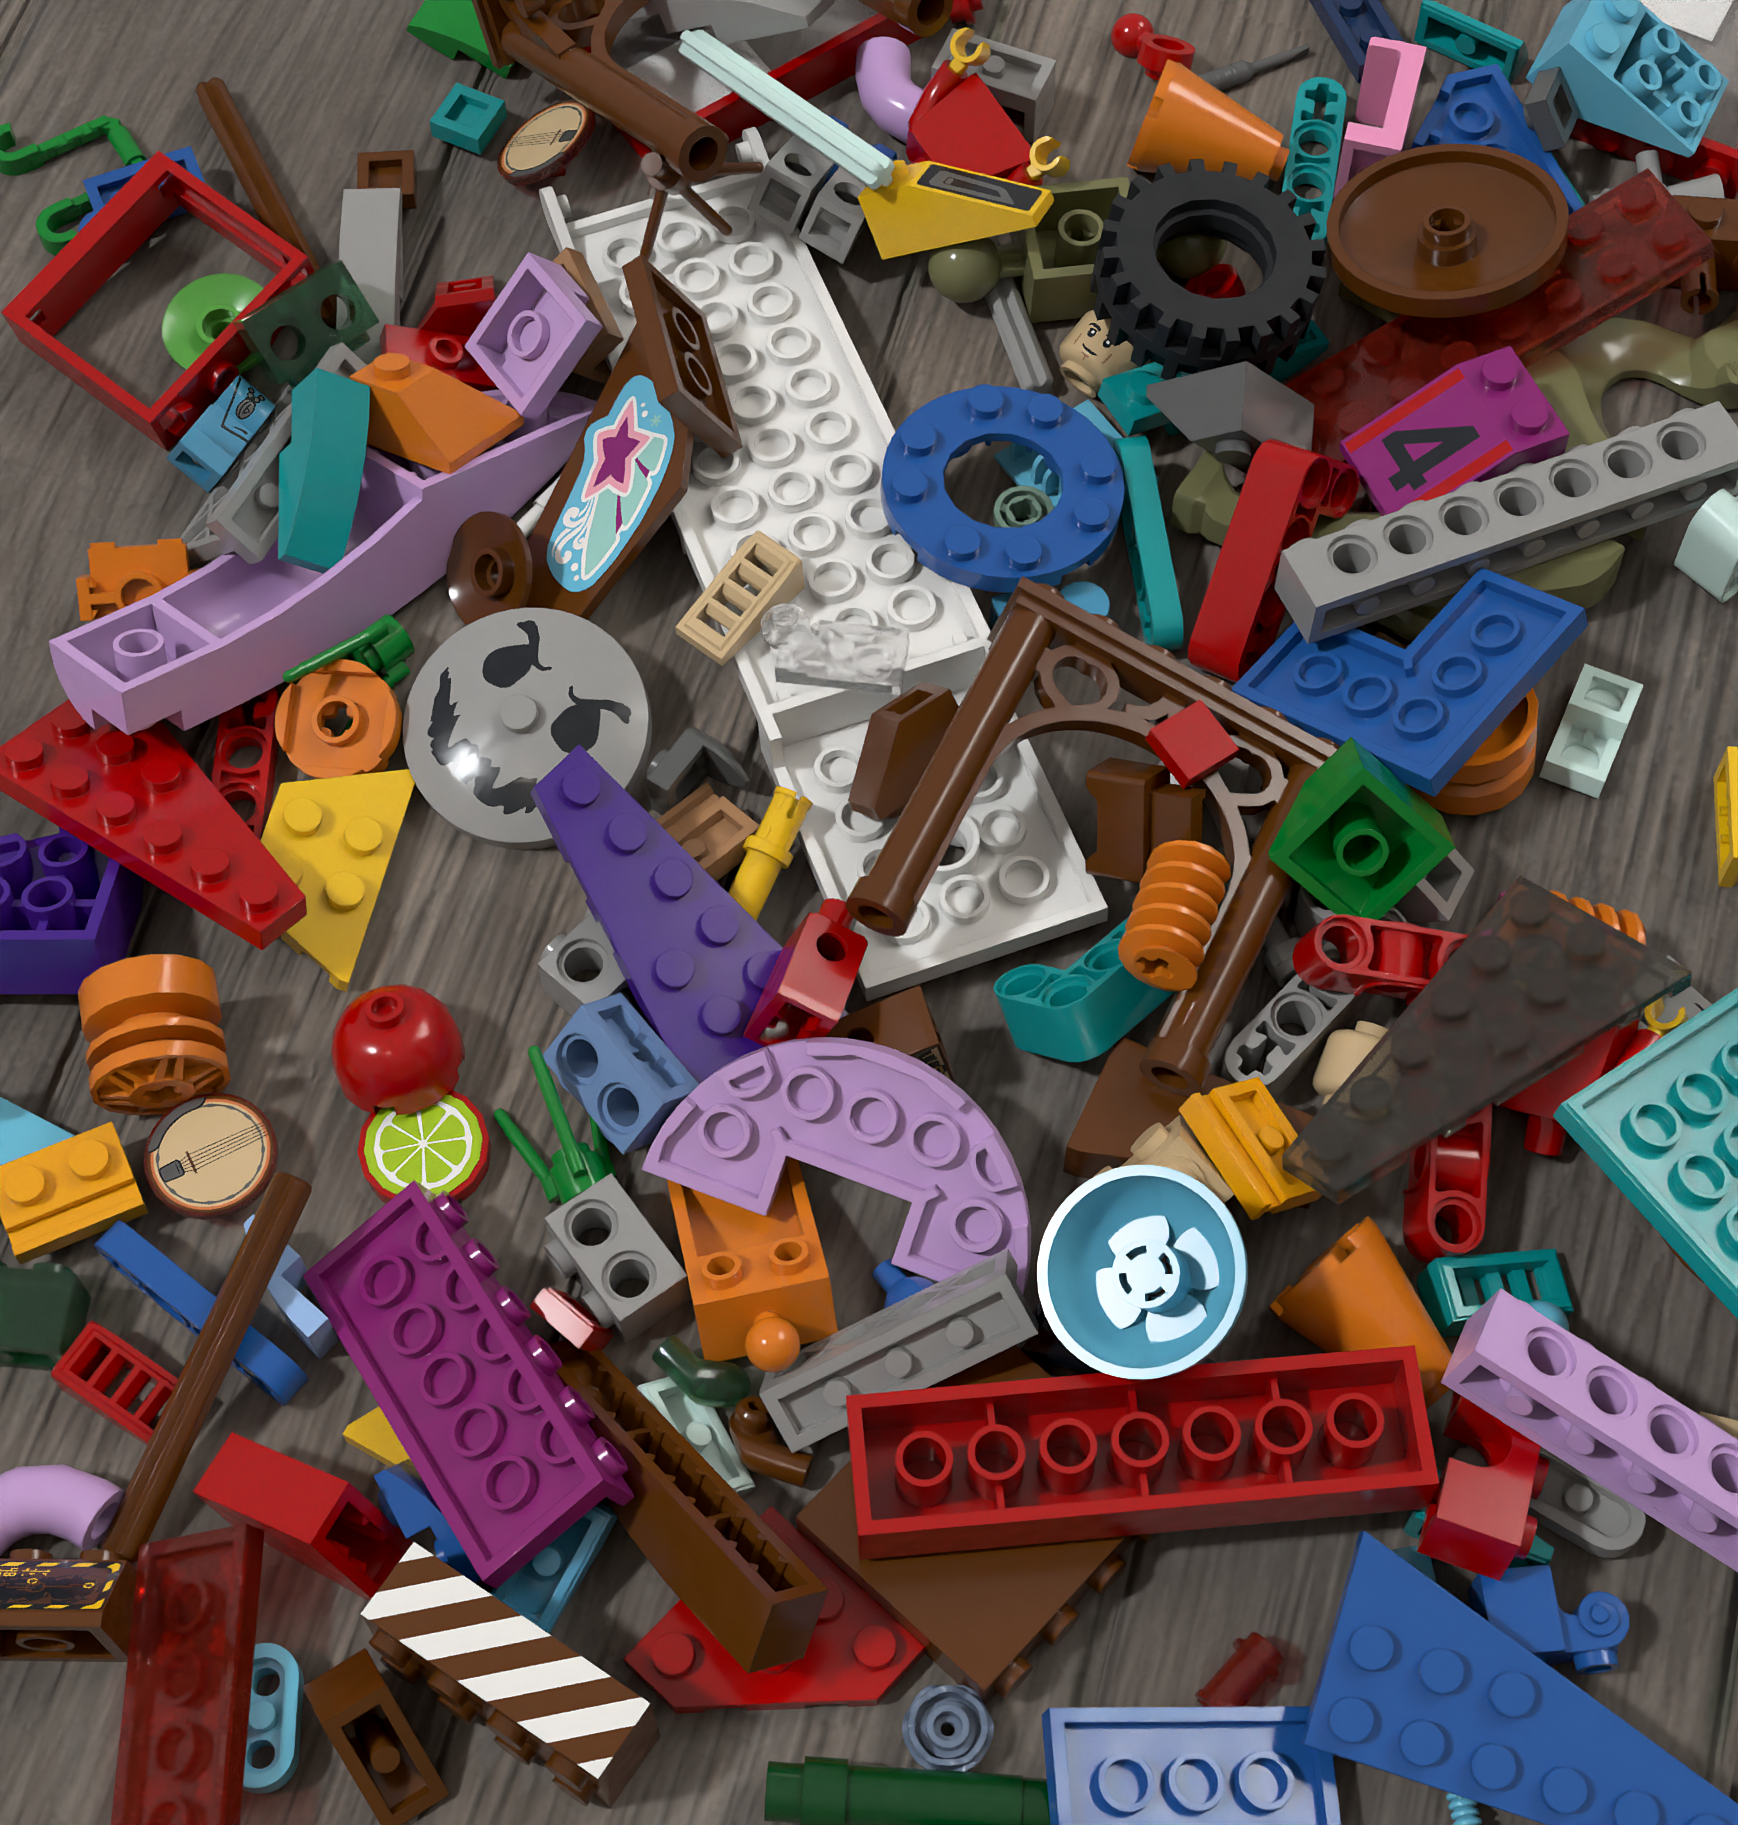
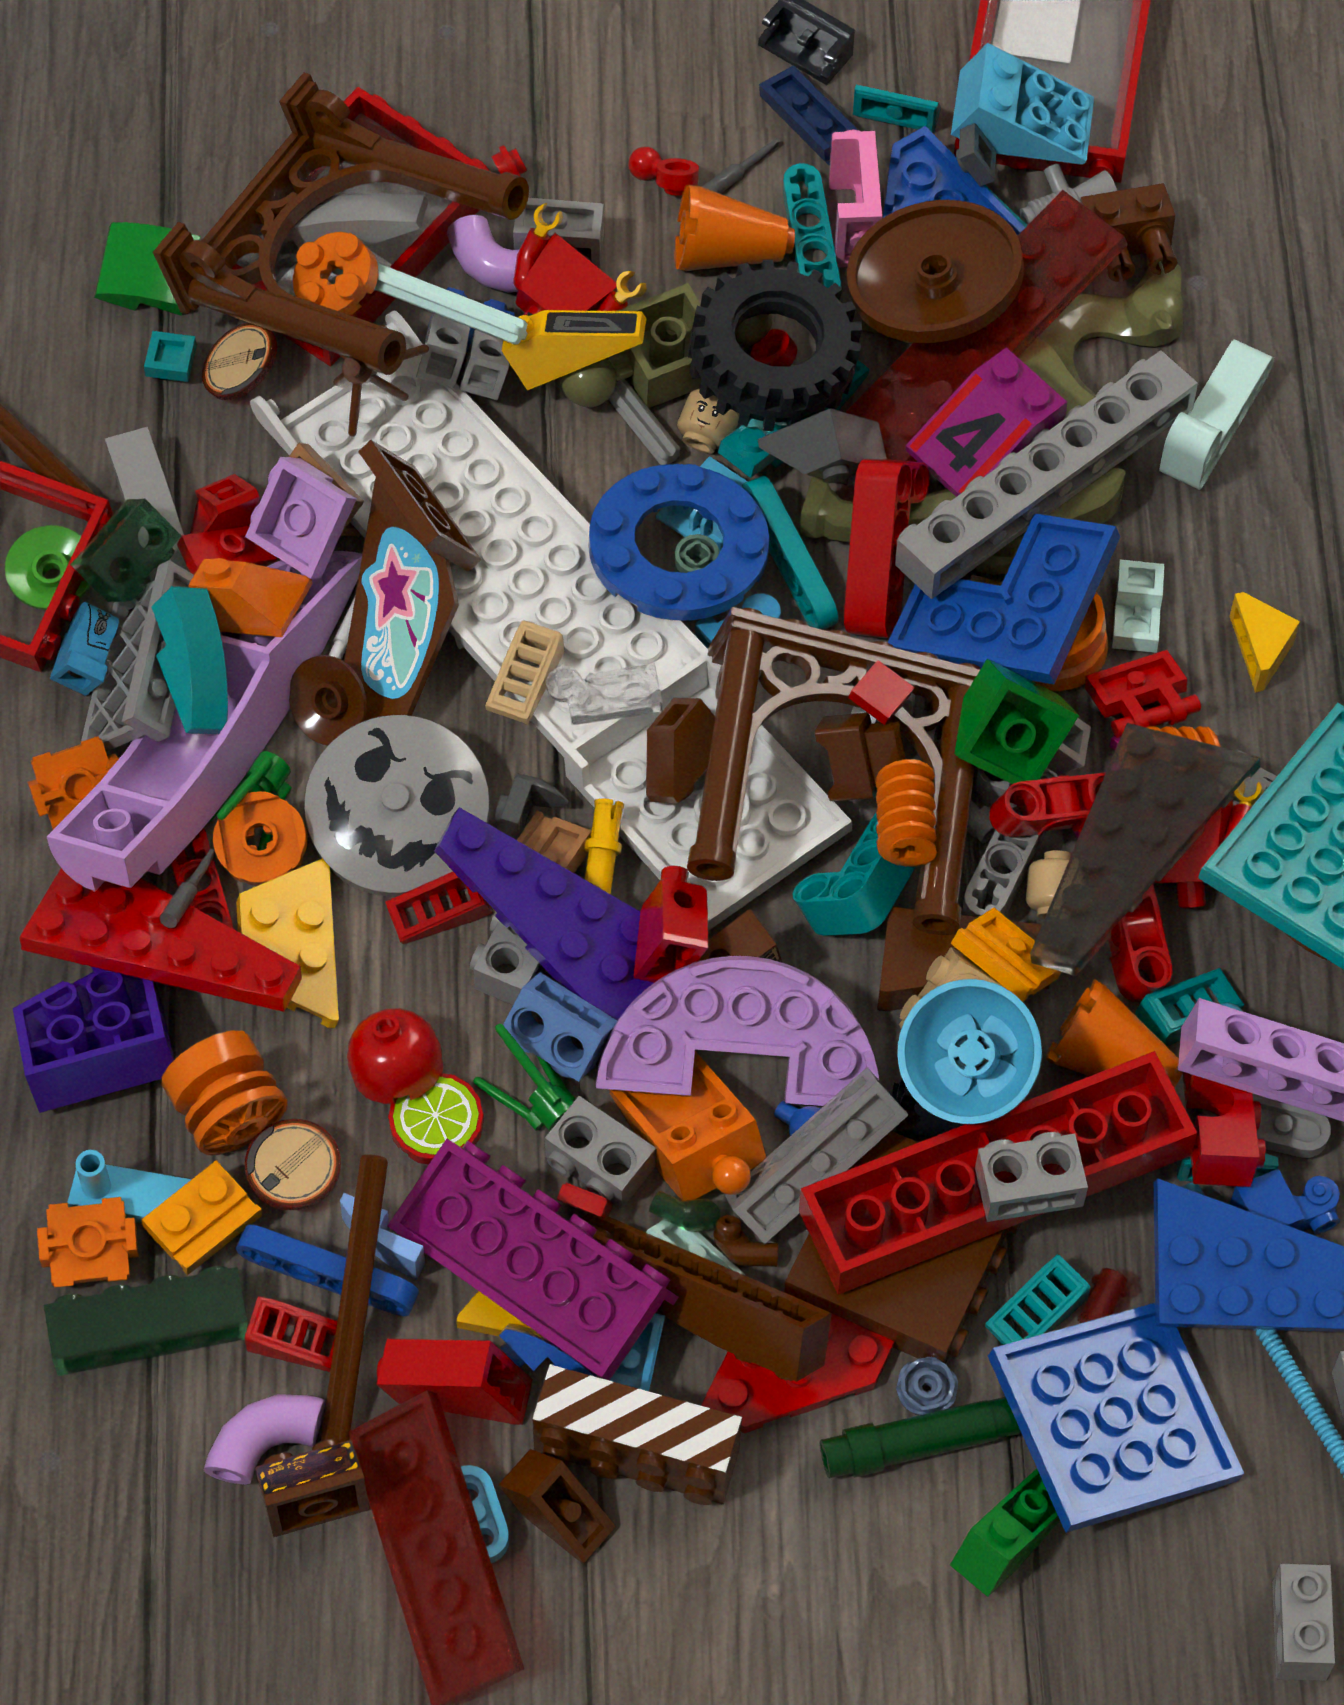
camera: 20 degrees left, 0 degrees up
(208, 764) = (185, 894): none -> dark grey piece
(389, 170) = (127, 415): reddish brown plate -> none
(537, 890) = (444, 920): none -> red slope
(683, 38) = (324, 255): none -> orange plate
(1132, 1637) = (1066, 1277): none -> teal slope
(1171, 1498) = (1035, 1189): none -> light grey brick
(1562, 831) = (1140, 683): none -> red plate

